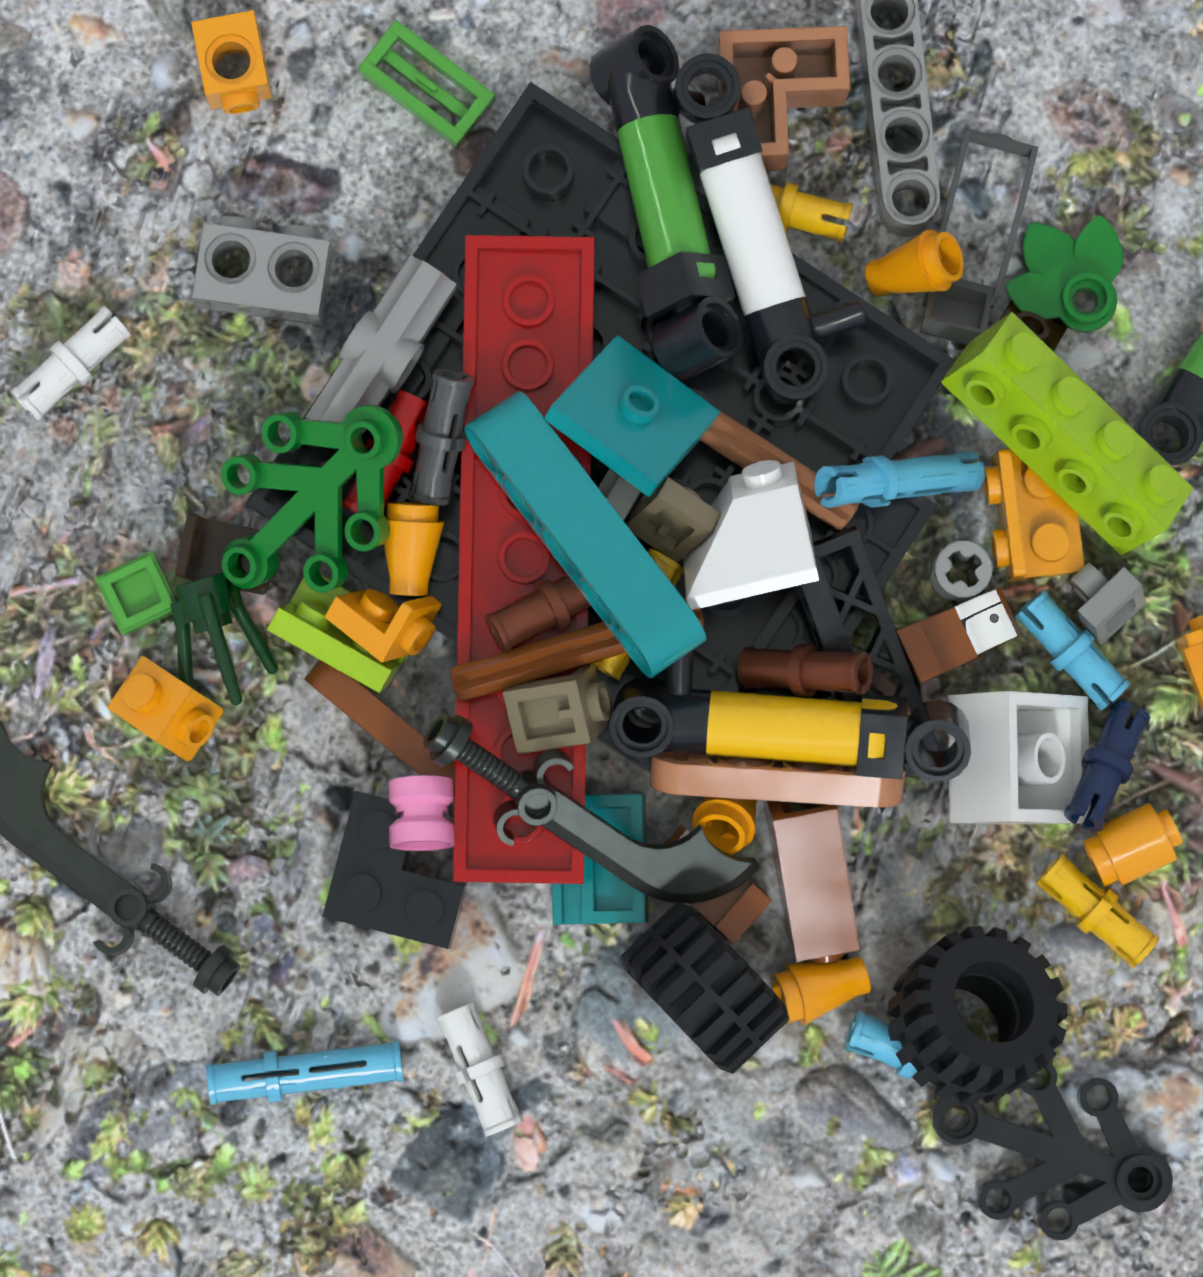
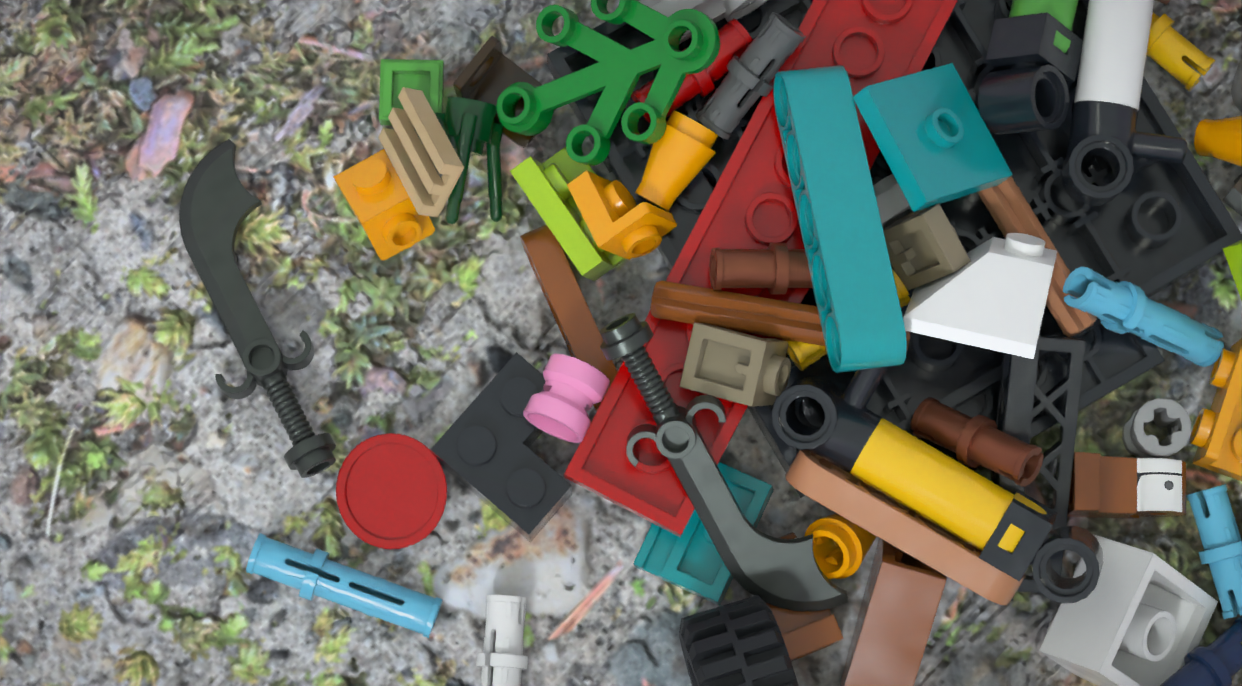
camera: 25 degrees right, 5 degrees down
(177, 651) = (414, 160): none -> tan tile
(304, 967) = (391, 491): none -> red piece

